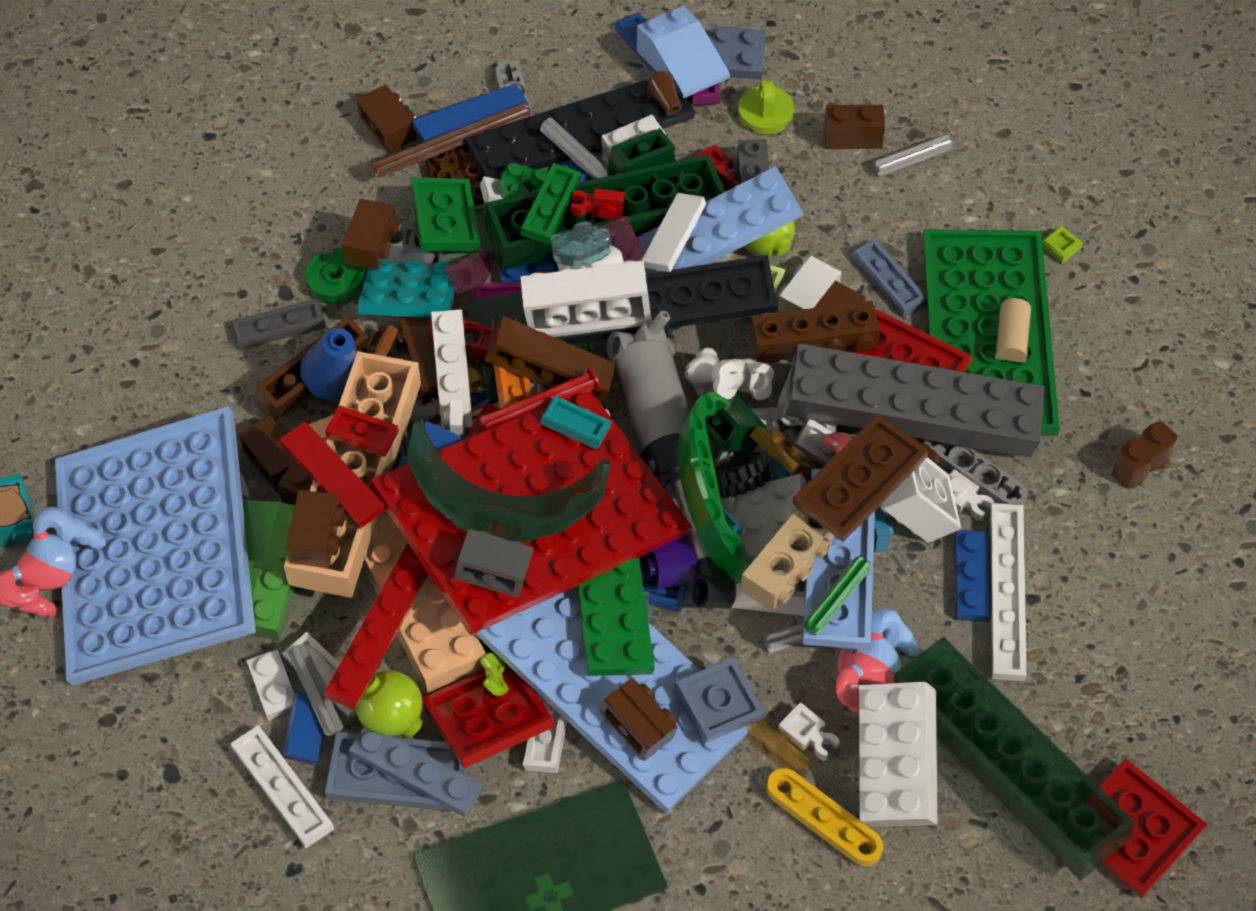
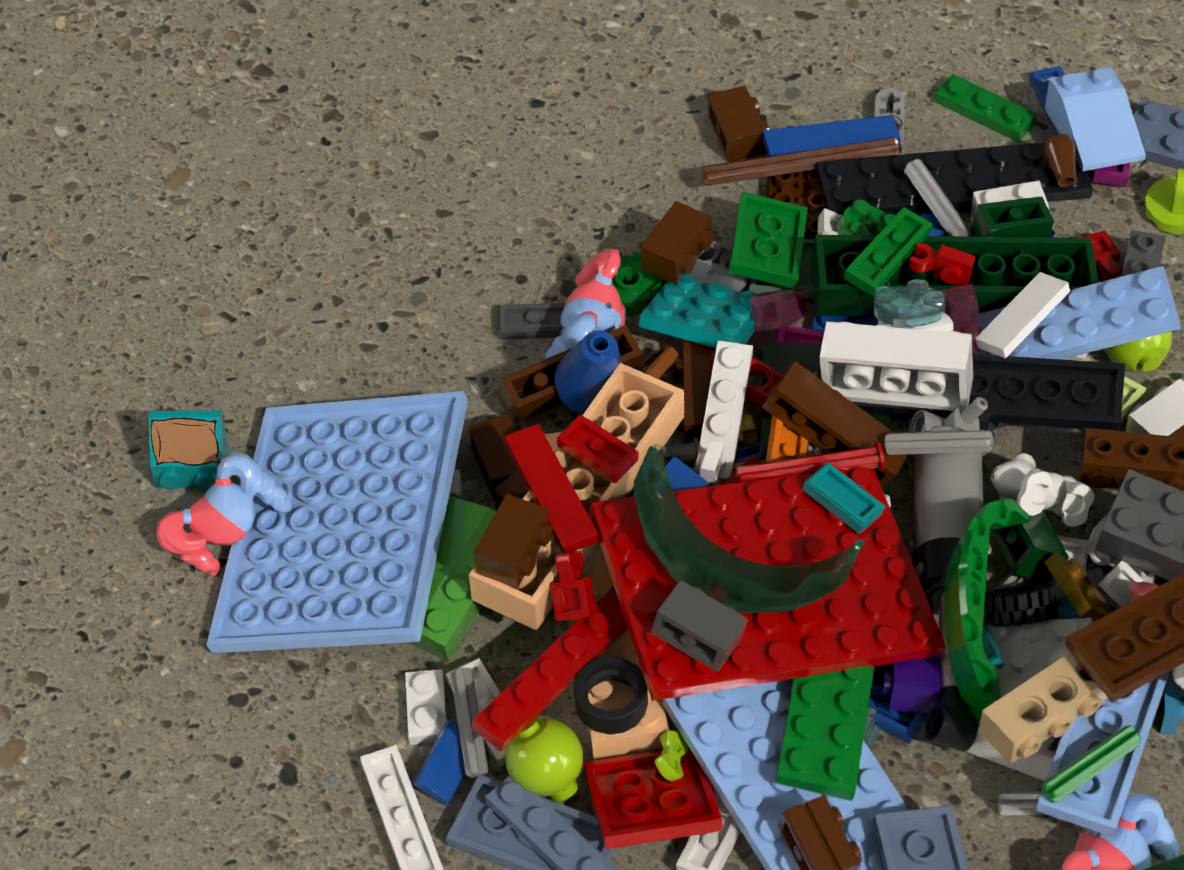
camera: 20 degrees right, 5 degrees down
(313, 306) = (592, 304): none -> hair
(376, 560) = (572, 594): none -> red plate
(431, 615) = (611, 670): none -> black tyre
(587, 60) = (985, 108): none -> green plate
(638, 356) = (939, 442): none -> light grey axle

